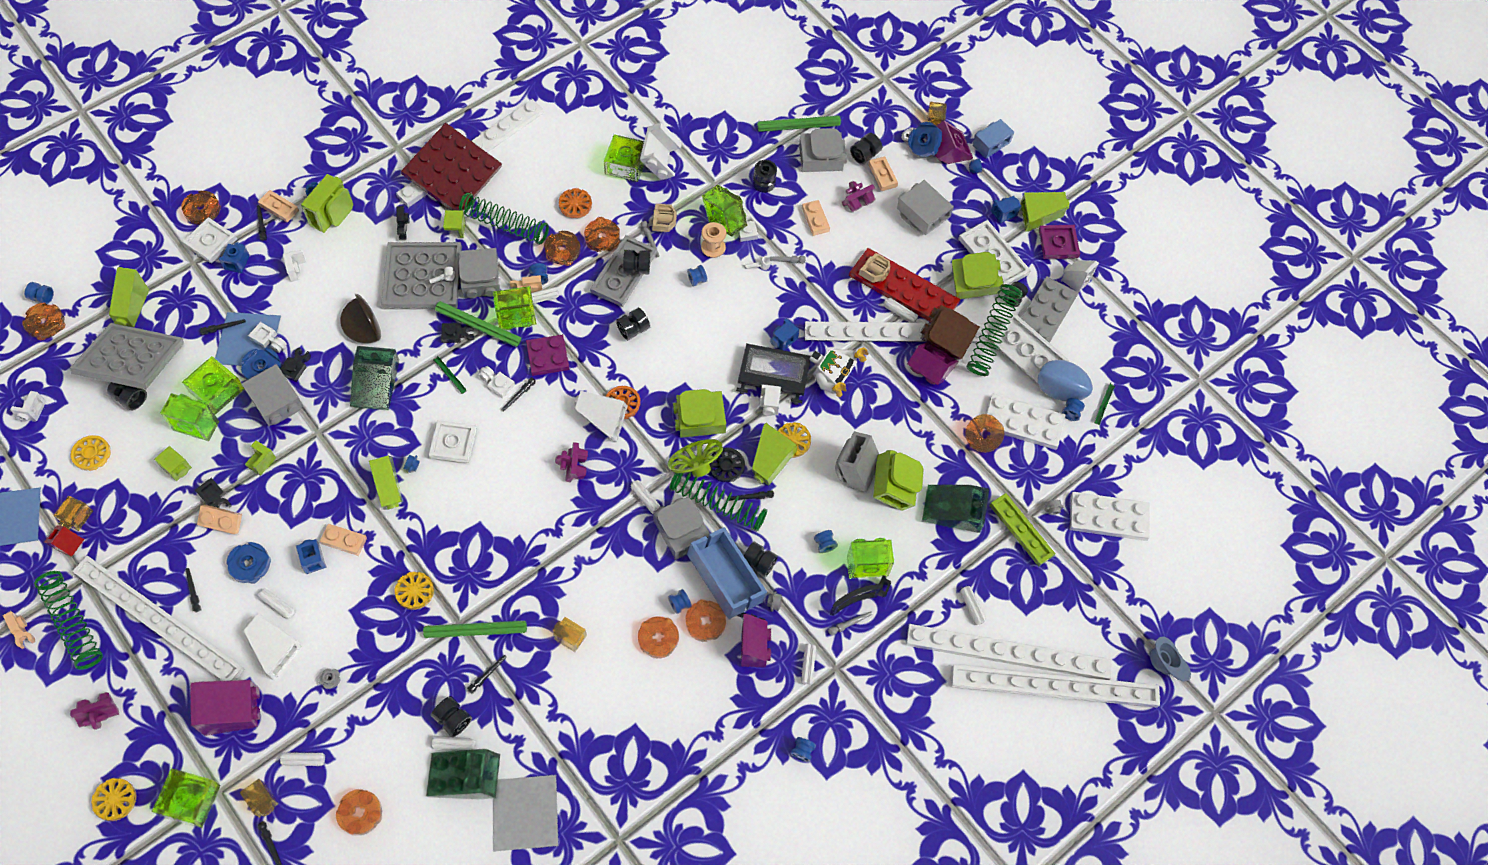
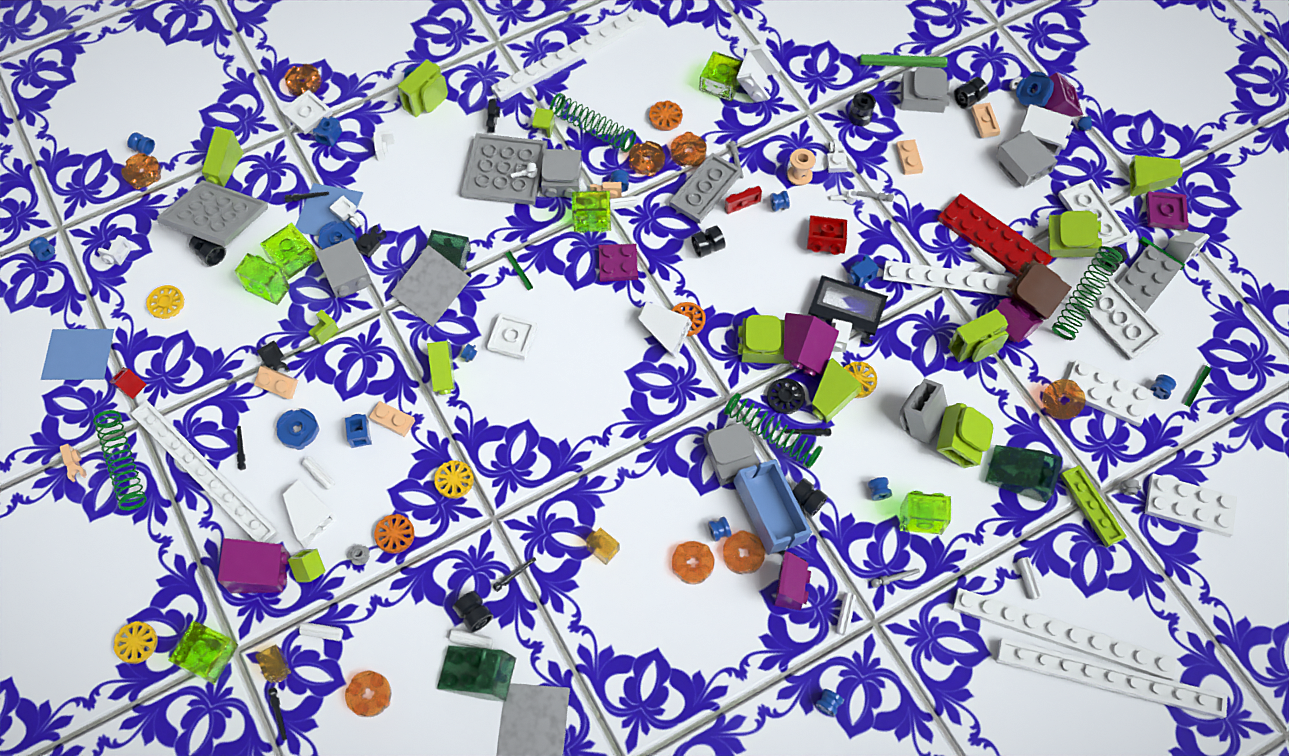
camera: 15 degrees right, 0 degrees up
(73, 513) = (140, 358): clear yellow brick -> none
(93, 713) = (130, 554): magenta hips -> none
(173, 463) = (240, 322): lime brick -> none
(262, 229) = (357, 107): black piece -> none
(278, 206) = (376, 86): light nougat plate -> none
(278, 696) = (306, 565): none -> lime panel
(360, 322) = (438, 207): dark brown piece -> none
(362, 652) = (394, 533): none -> orange wheel
(363, 402) = (430, 285): none -> flat silver sticker
(451, 167) = (547, 67): dark red plate -> none
(454, 332) = (528, 229): black plate -> none
(475, 629) = (512, 527): bright green axle -> none
(478, 324) = (553, 223): bright green axle -> none
(499, 384) = (565, 285): white plate -> none
(524, 388) = (591, 292): black piece -> none
(570, 461) = (627, 371): magenta hips -> none
(636, 262) = (720, 179): black wheel -> none
(645, 496) = (698, 417): white axle -> none
(661, 278) = (743, 199): none -> red plate
(662, 218) = (753, 139): tan piece -> none
(698, 464) = (757, 391): lime wheel -> none
(725, 209) = (817, 136): clear neon green brick -> none
(741, 411) = (808, 343): none -> magenta slope
(746, 303) = (827, 234): none -> red plate
(774, 601) = (818, 543): light grey plate -> none
(835, 368) = (912, 311): torso -> none
(852, 597) = (902, 550): black sword -> none
(853, 199) = (964, 138): magenta hips -> none
(875, 268) = (966, 215): tan piece -> none
(901, 385) = (980, 337): none -> lime brick
(936, 112) = (1049, 64): clear yellow brick -> none
(941, 173) = (1047, 126): none -> white panel
(993, 138) = (1107, 96): medium blue brick -> none
(1006, 208) = (1112, 170): blue brick -> none
(1043, 274) = (1144, 241): none -> green piece
(1064, 380) = (1157, 355): medium blue piece -> none
(1168, 659) = (1240, 669): sand blue piece -> none

